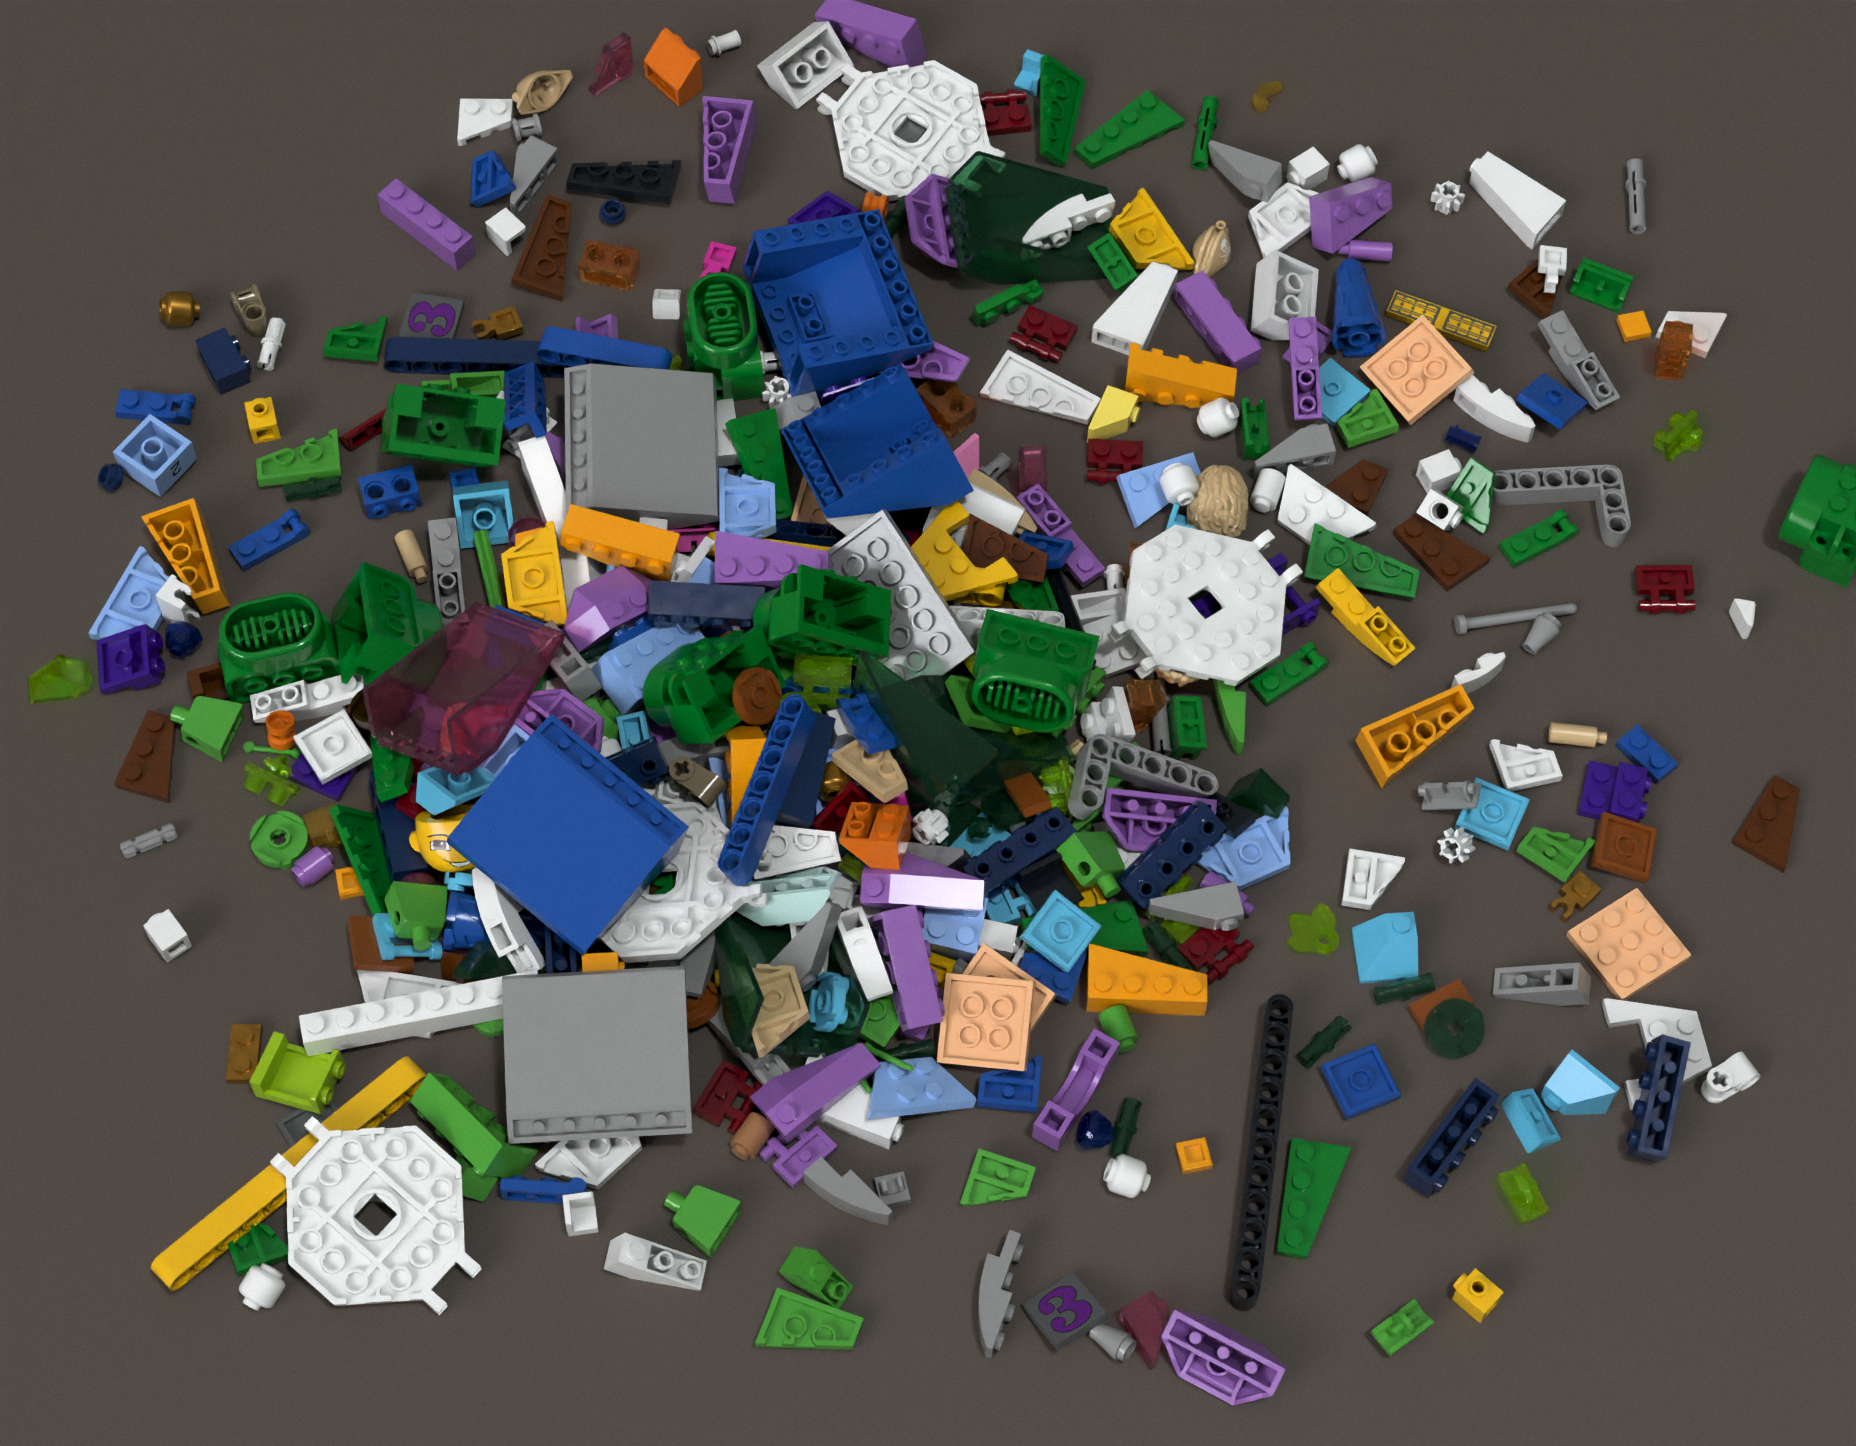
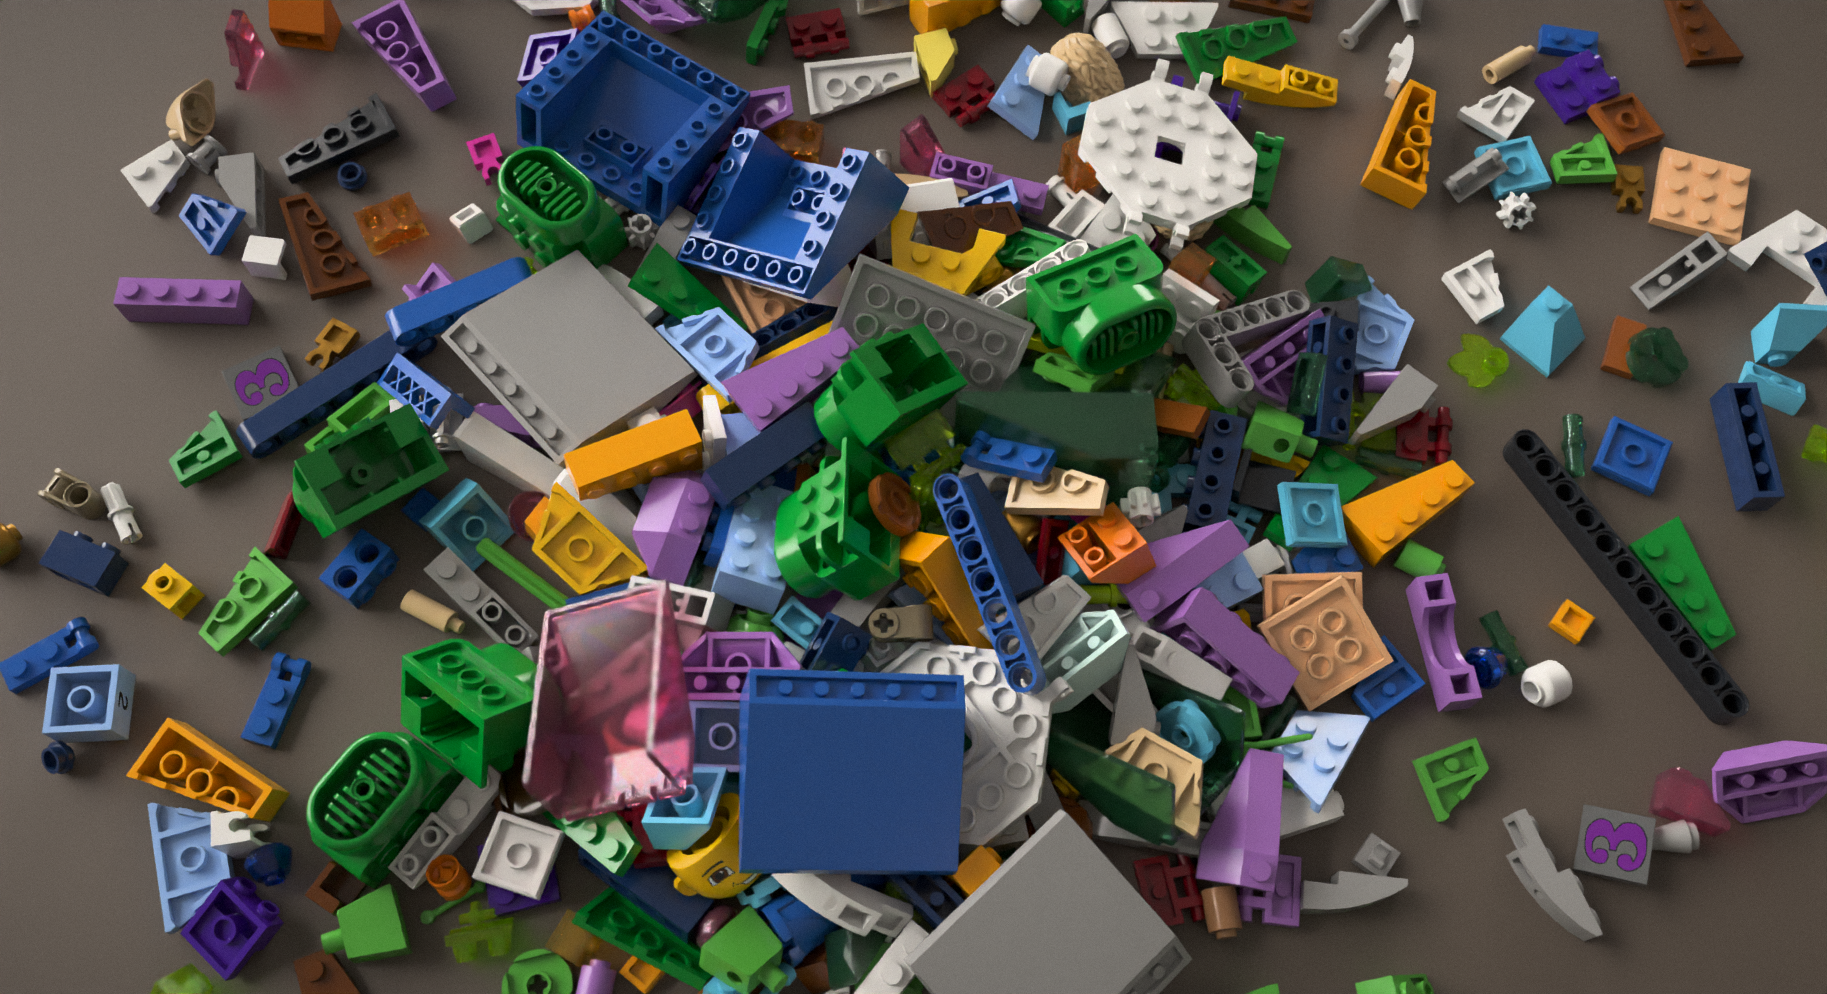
camera: 40 degrees left, 5 degrees up
(1148, 842) = (1306, 384): none -> clear green tile
(1404, 988) = (1588, 355): clear green pin -> none

